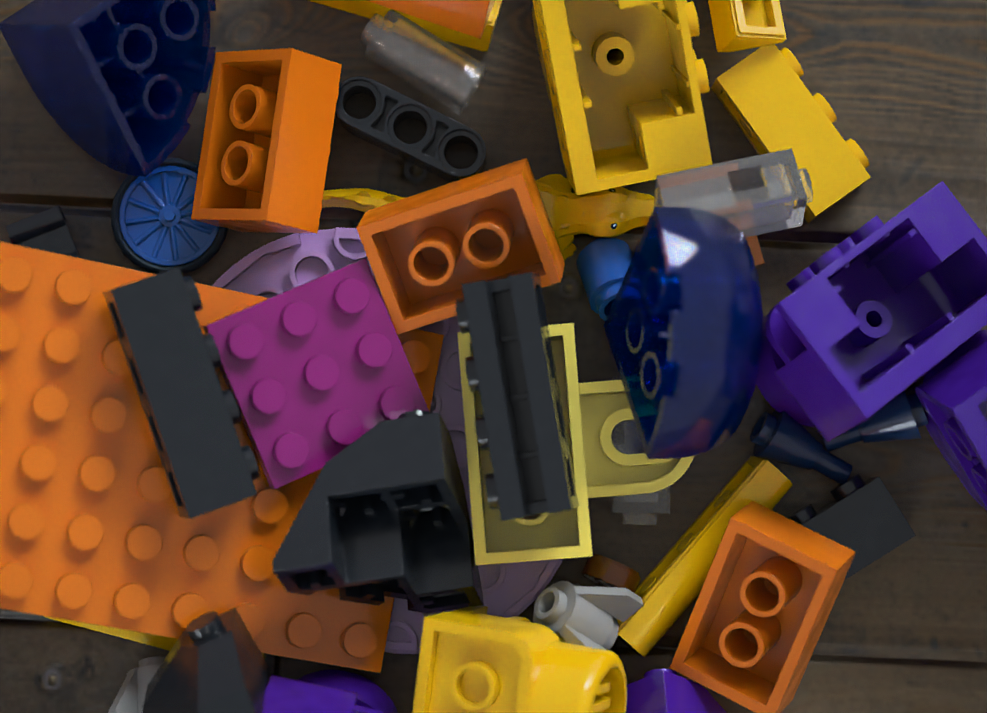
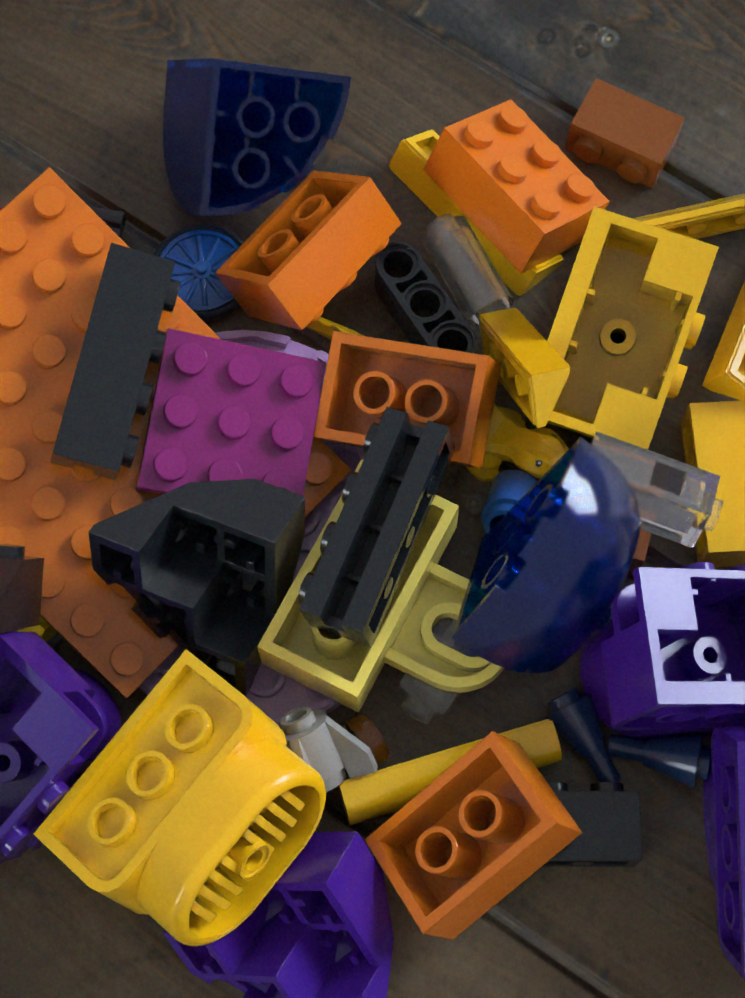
camera: 35 degrees right, 15 degrees down
(549, 143) = (529, 364): none -> yellow slope

